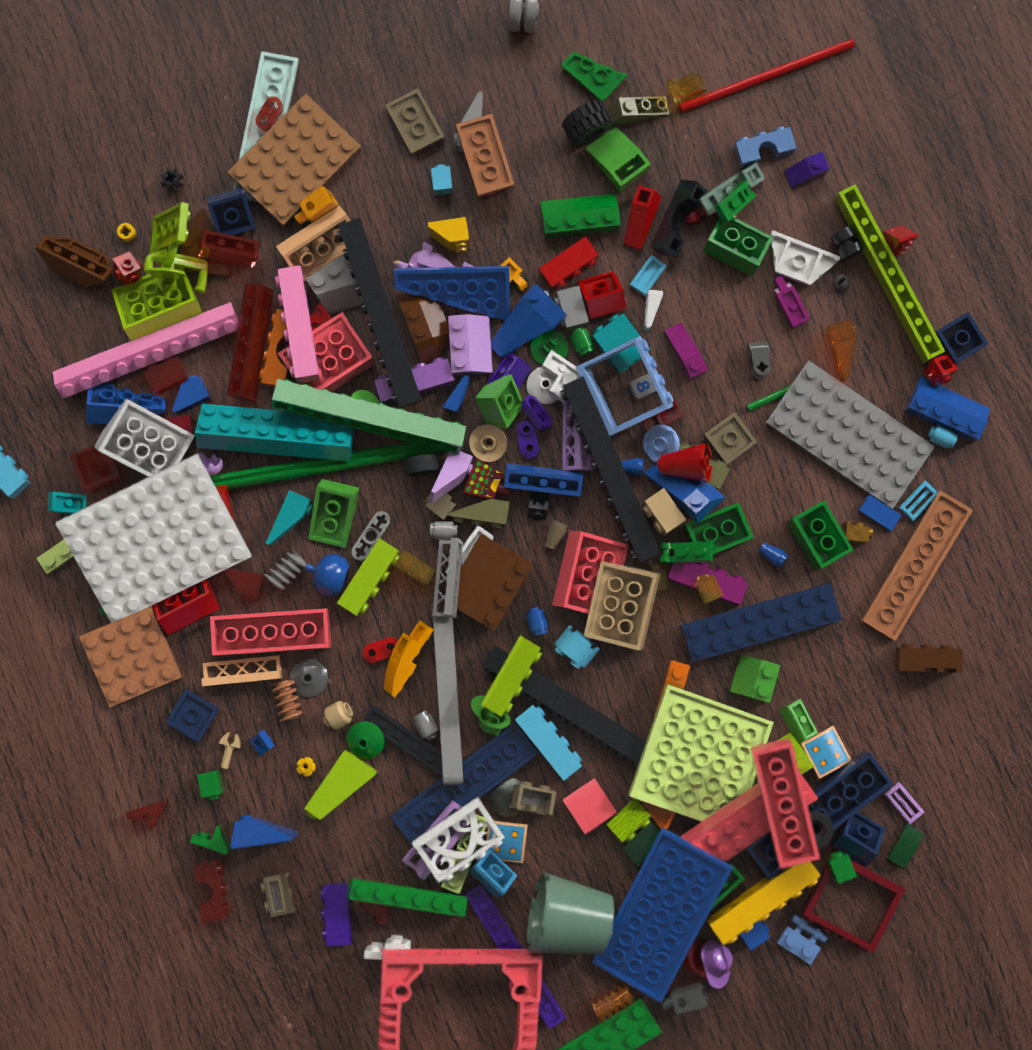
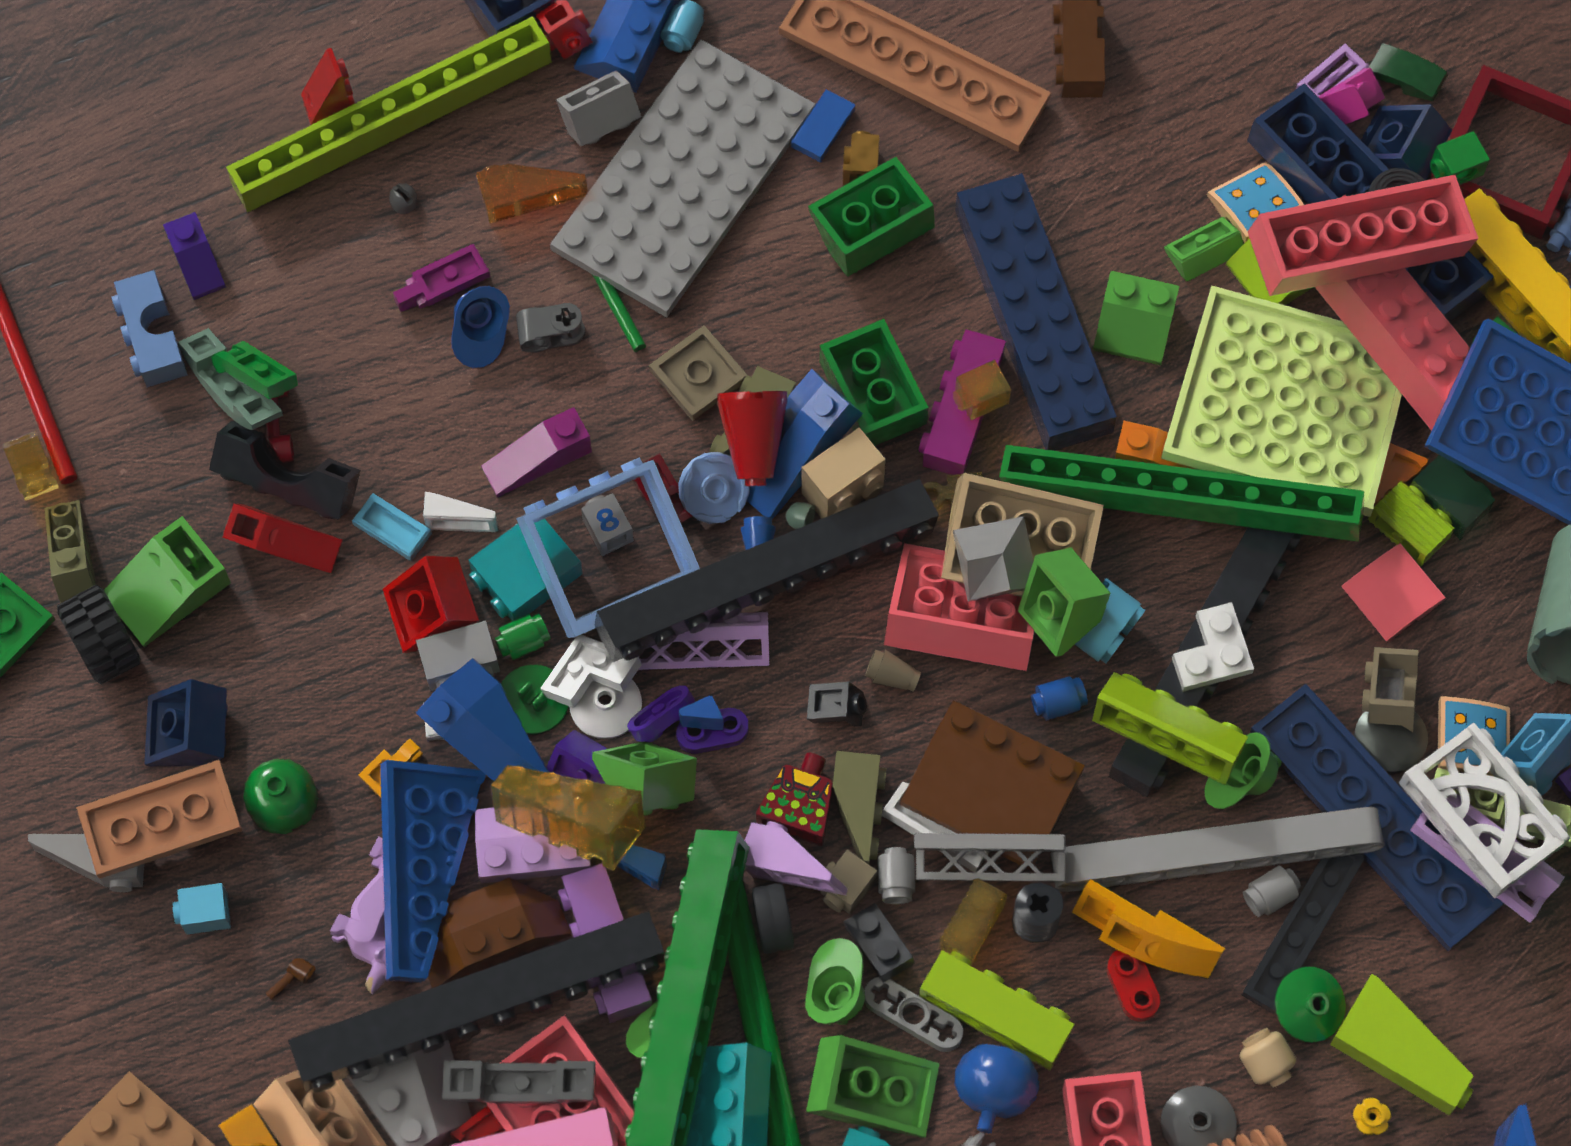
camera: 90 degrees left, 15 degrees down
(338, 333) = (519, 1082): none -> dark grey slope
(385, 495) = (835, 983): none -> bright green piece
(408, 520) = (879, 942): none -> black plate
(409, 229) = (297, 969): none -> reddish brown hand
(409, 600) = (1037, 912): none -> black piece
(414, 121) = (82, 968): dark tan plate -> none
(451, 234) = (316, 878): yellow slope -> none
(476, 362) = (570, 811): none -> clear yellow wedge
(482, 449) = (738, 793): tan dish -> none
(501, 218) = (280, 796): none -> green cylinder
(532, 434) = (702, 715): none -> blue slope
(540, 170) = (186, 725): none -> dark blue slope
(543, 479) = (790, 692): blue brick -> none
(548, 742) = (1283, 667): medium azure brick -> none
(551, 708) = (1221, 657): none -> white plate
(569, 264) = (372, 665): red brick -> none
(580, 216) = (275, 649): green slope -> none
(581, 623) = (1062, 599): none -> bright green slope
(609, 590) = (994, 558): none -> light grey slope
(644, 694) = (1189, 492): none -> green brick
(645, 490) = (800, 514): none -> sand green hinge
(687, 552) = (918, 428): green plate -> none
(738, 245) = (337, 366): green slope -> none
(759, 321) = (480, 326): none -> blue piece
(774, 555) = (910, 292): blue cone -> none
(799, 260) = (361, 266): white wing -> none
(847, 243) = (332, 185): black wheel -> none
(887, 809) = (1354, 96): none -> dark pink slope
(890, 387) = (598, 108): none -> light grey brick
(909, 499) = (791, 75): medium azure tile -> none

